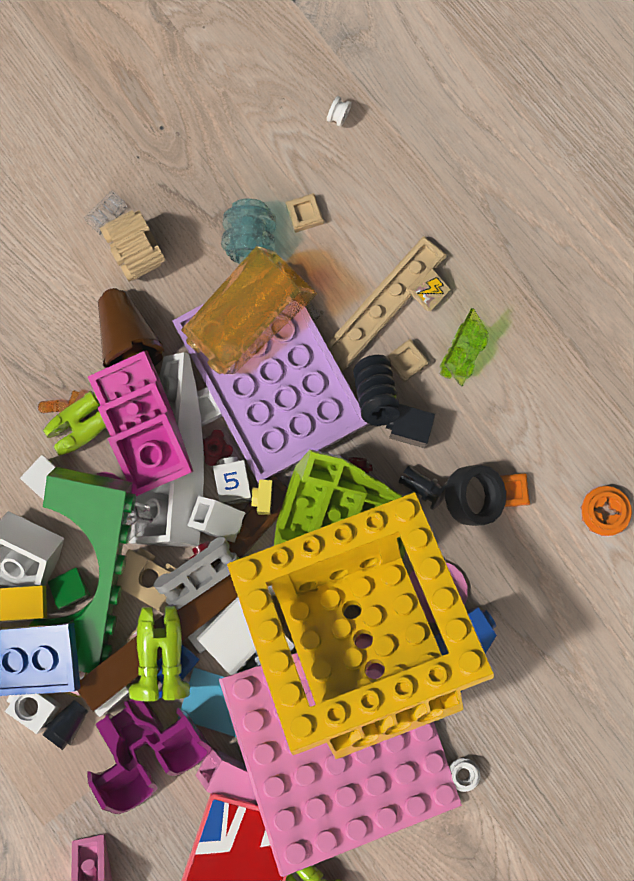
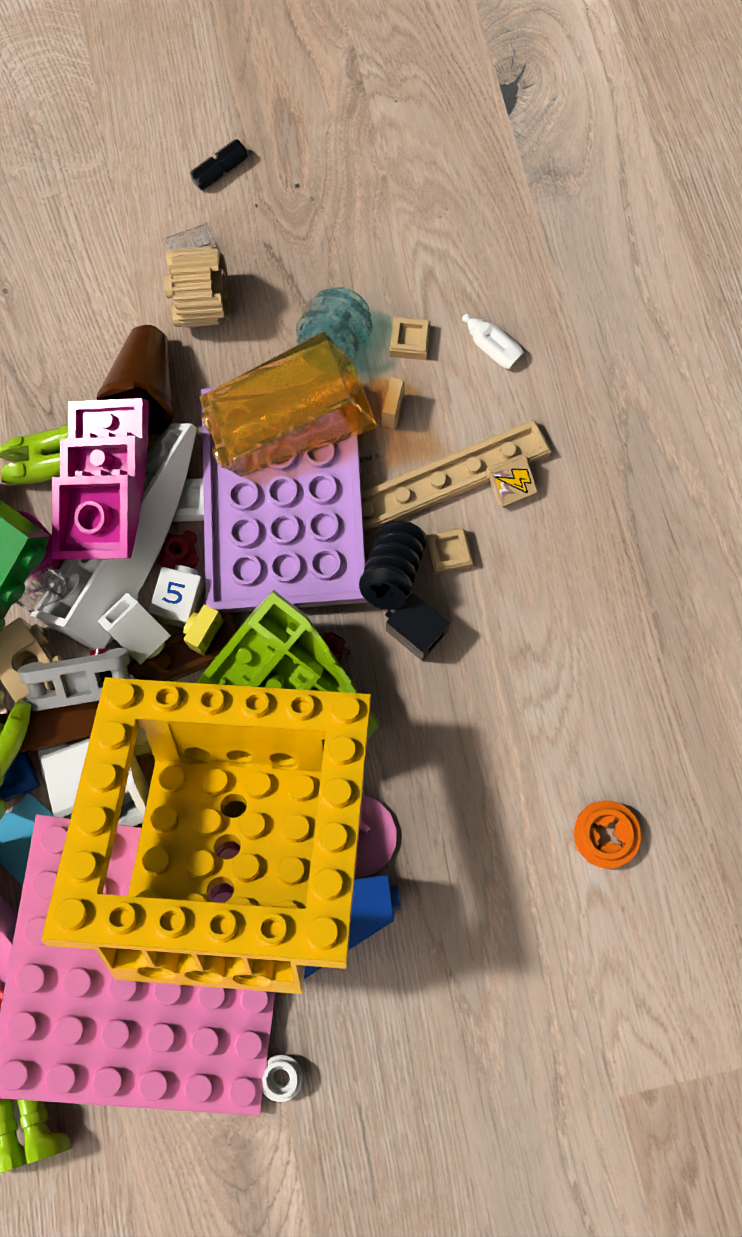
camera: 30 degrees right, 5 degrees down
(55, 405) = (28, 427): clear orange piece -> none
(98, 132) = (212, 168): none -> black piece
(318, 269) = (393, 403): none -> tan tile
(339, 111) = (501, 243): white bush -> none
(367, 189) = (494, 341): none -> white piece
(424, 486) = (401, 707): black pin -> none
(468, 342) = (522, 563): clear neon green hinge -> none
(494, 495) = (480, 744): black tyre -> none
(516, 490) = (502, 757): orange tile -> none

